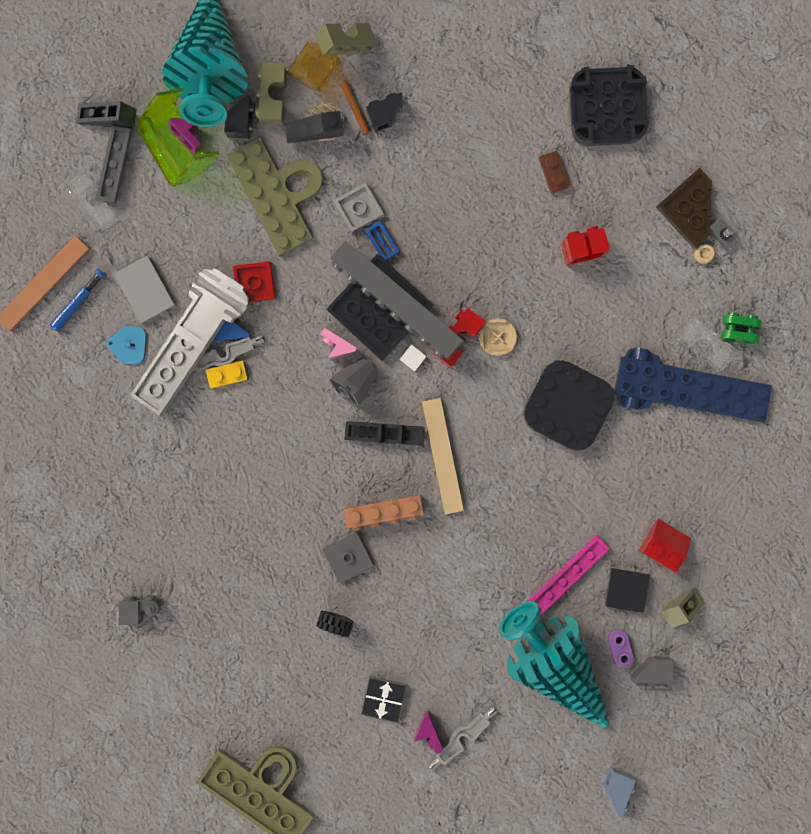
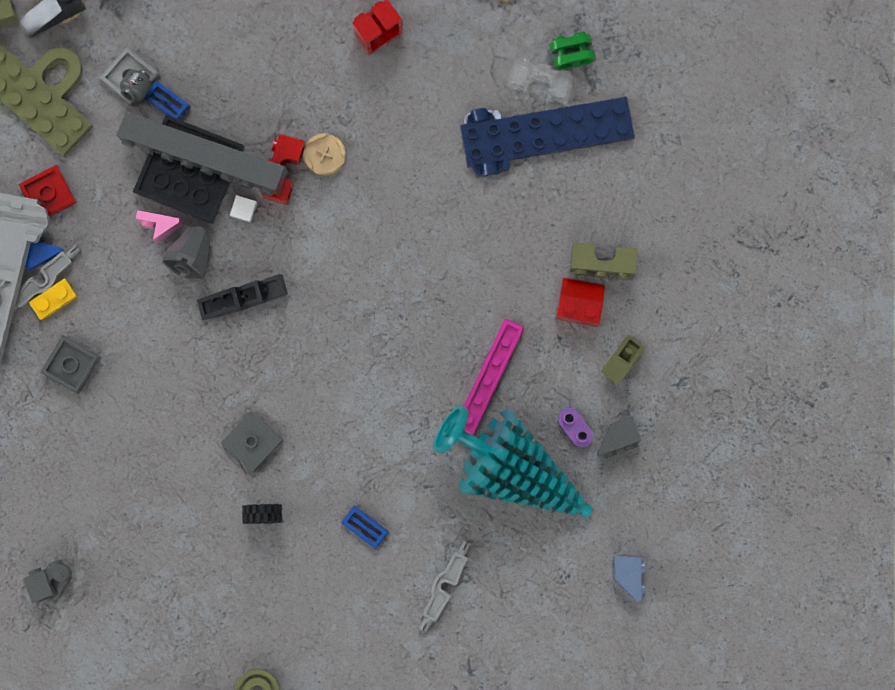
camera: 20 degrees left, 5 degrees down
(221, 435) = (70, 364): none -> dark grey plate
(361, 219) = (135, 85): none -> dark grey head
(383, 511) = (269, 378): nougat brick -> none
(383, 699) = (345, 577): black tile -> none
(406, 650) = (366, 528): none -> blue tile
(427, 728) = (402, 587): magenta slope -> none
(442, 456) = (312, 298): tan tile -> none
(568, 405) = (423, 195): black plate -> none
(627, 590) = (558, 363): black tile -> none
(683, 511) = (584, 262): none -> olive arch

